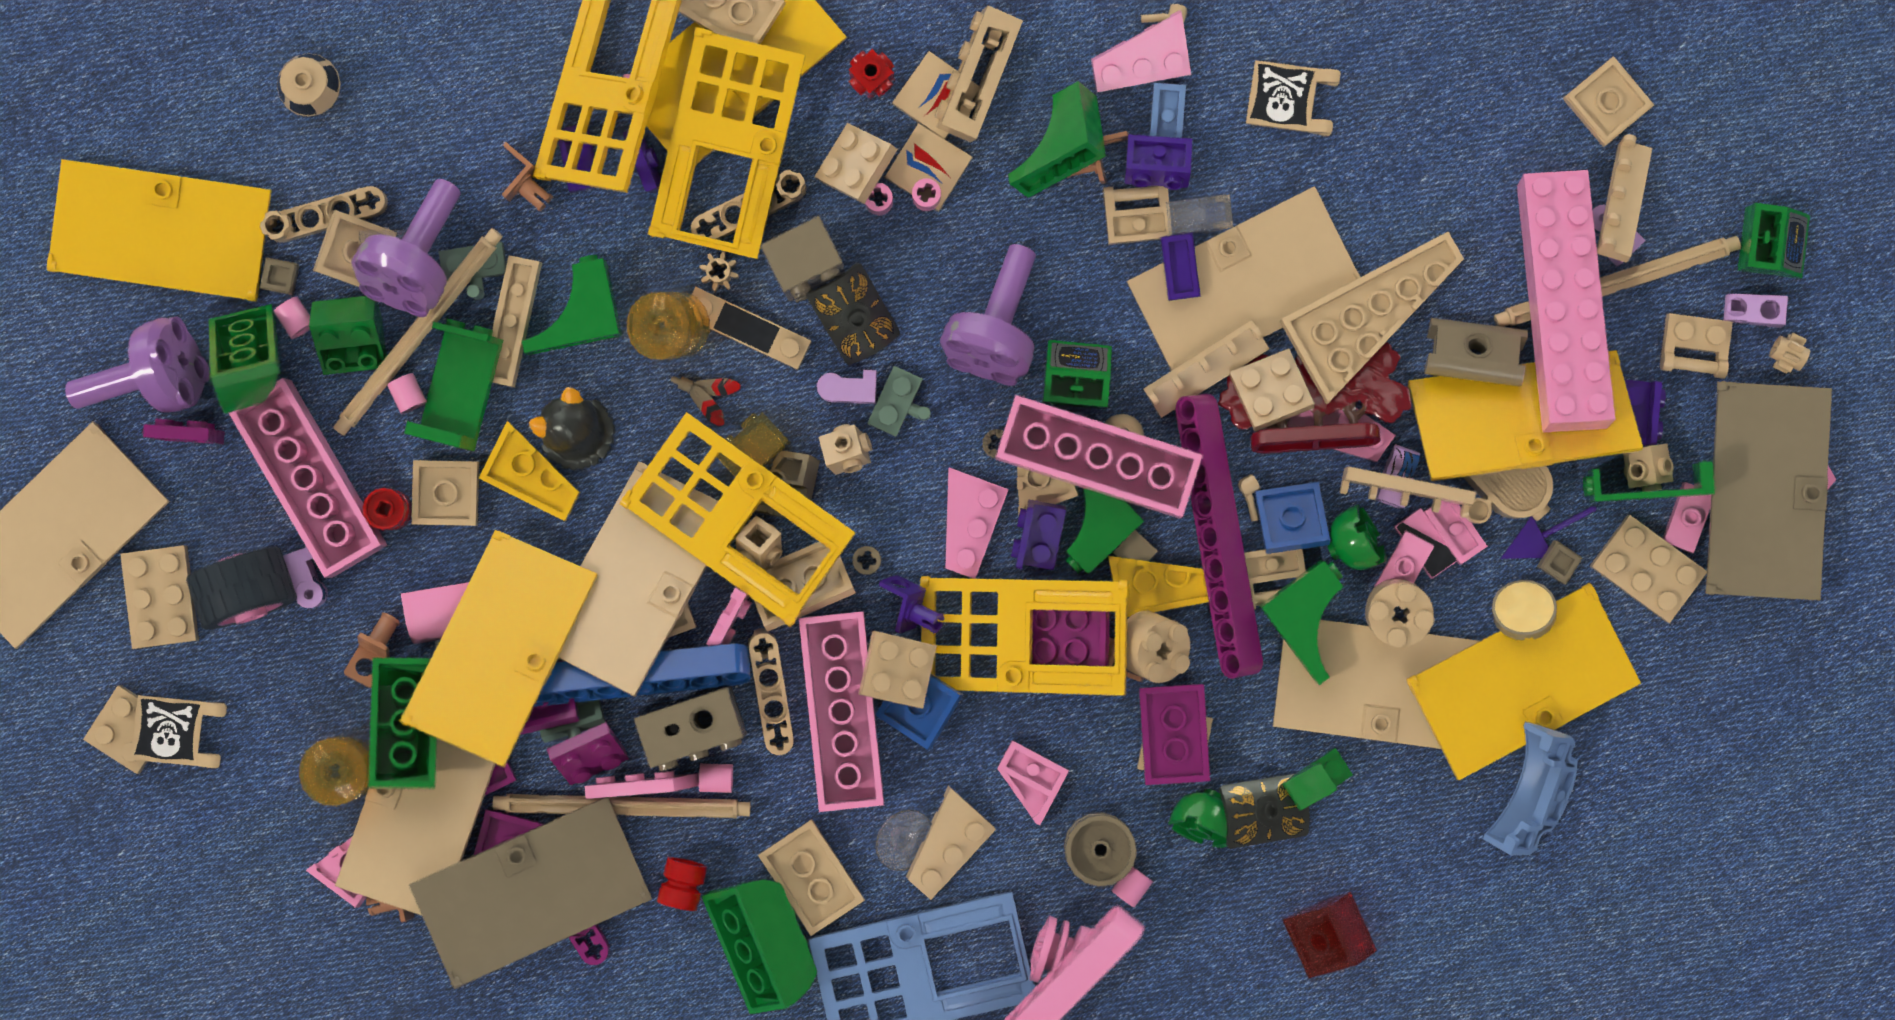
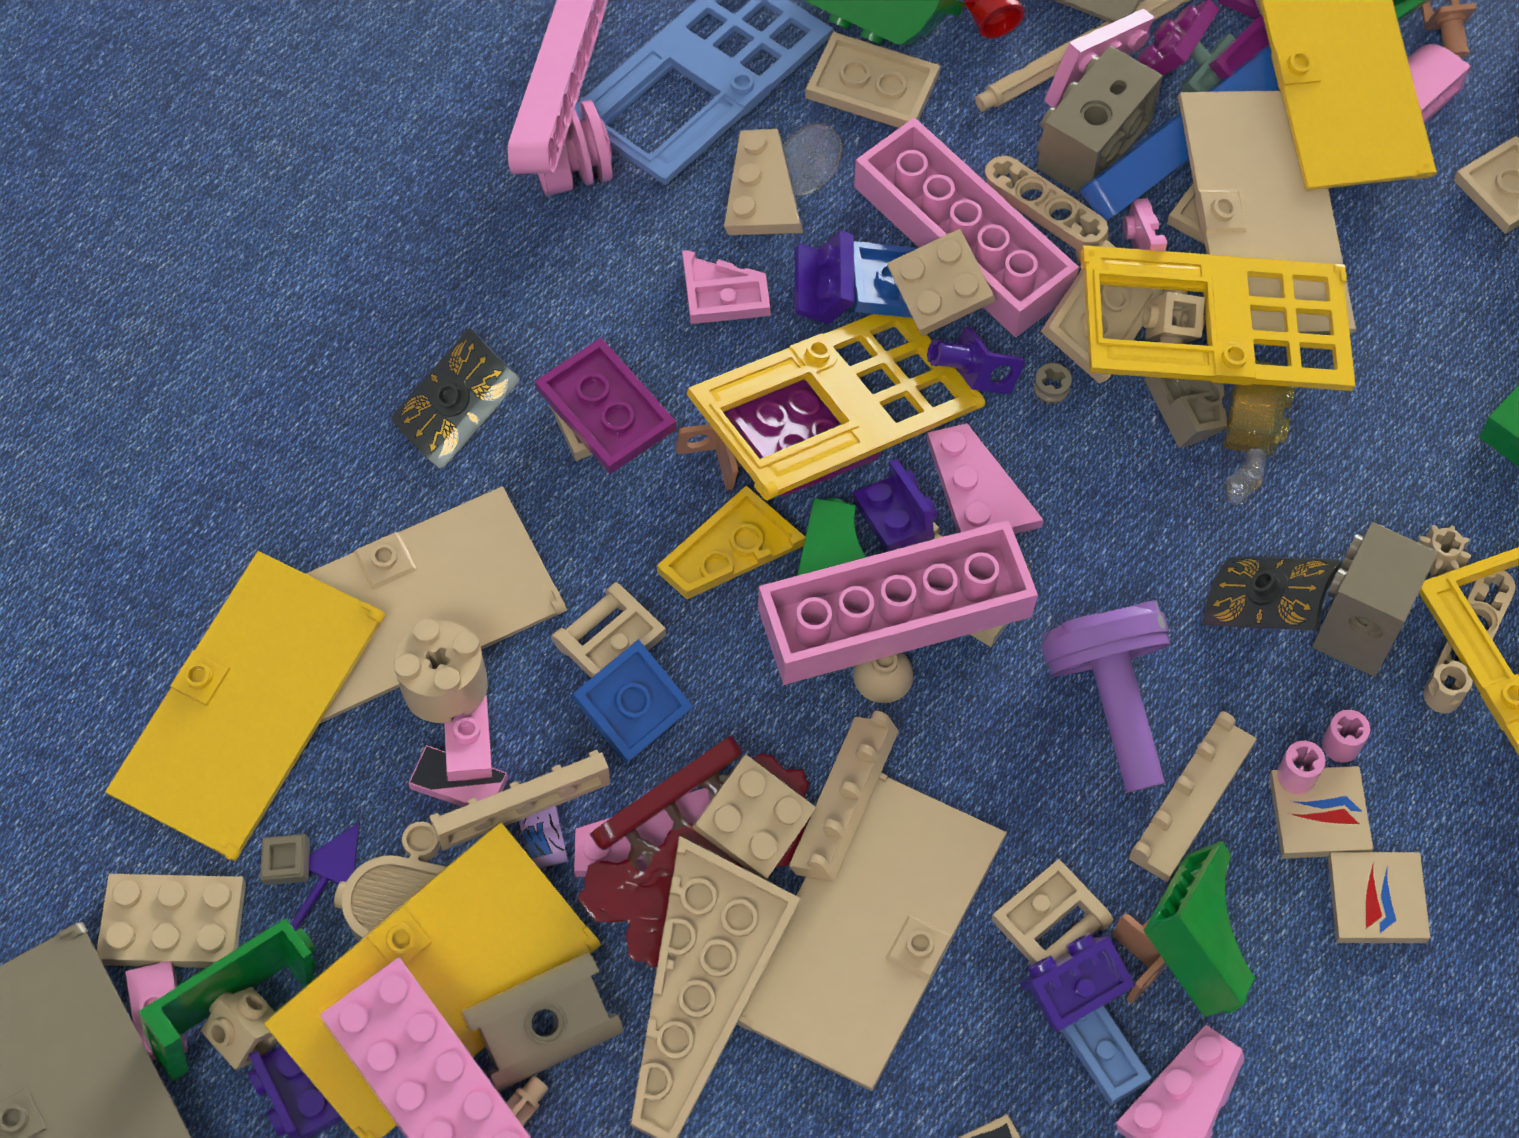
camera: 150 degrees right, 25 degrees down
(528, 475) = (1449, 247): yellow wing -> none
(574, 430) = (1446, 309): pearl dark grey hair -> none
(684, 320) = (1448, 453): clear yellow wheel -> none
(703, 390) = (1351, 432): piece -> none
(716, 778) = (1032, 105): bright pink gear -> none
(754, 330) = (1337, 524): plate -> none
(796, 405) = (1246, 478): none -> clear arm
(845, 449) = (1164, 461): tan brick -> none
(848, 390) = (1208, 526): lavender leg -> none
(855, 163) = (1403, 752): tan plate -> none
(871, 85) = (1470, 861): red brick -> none
(897, 402) = (1148, 549): sand green plate -> none
(961, 737) = (825, 278): none -> dark purple bracket
(996, 228) = (1193, 798): none -> tan hinge
(997, 25) = (1382, 1016): tan brick -> none
(1077, 374) = (982, 692): green slope -> none
(1091, 866) = (604, 262): dark tan wheel -> none
(1132, 887) = (545, 257): bright pink gear -> none
(1135, 548) = (779, 567): dark tan tile -> none
(1156, 647) = (689, 470): tan brick -> none
(1180, 266) = (959, 884): dark purple tile -> none
(1199, 215) = (983, 952): clear slope -> none
(1200, 818) = (524, 350): green cylinder -> none
(1220, 538) = (703, 633): magenta beam -> none
(1248, 486) = (704, 709): tan hand -> none
(1298, 611) = (556, 596): green arch -> none
(1317, 779) = (418, 464): green slope -> none
(1330, 935) = (300, 334): clear red slope -> none
(1355, 540) = (539, 724): green cylinder -> none
(1456, 531) = (416, 802): bright pink plate -> none
(1524, 609) = (295, 773): pearl gold tile -> none
(1540, 792) = (154, 593): medium blue windscreen -> none

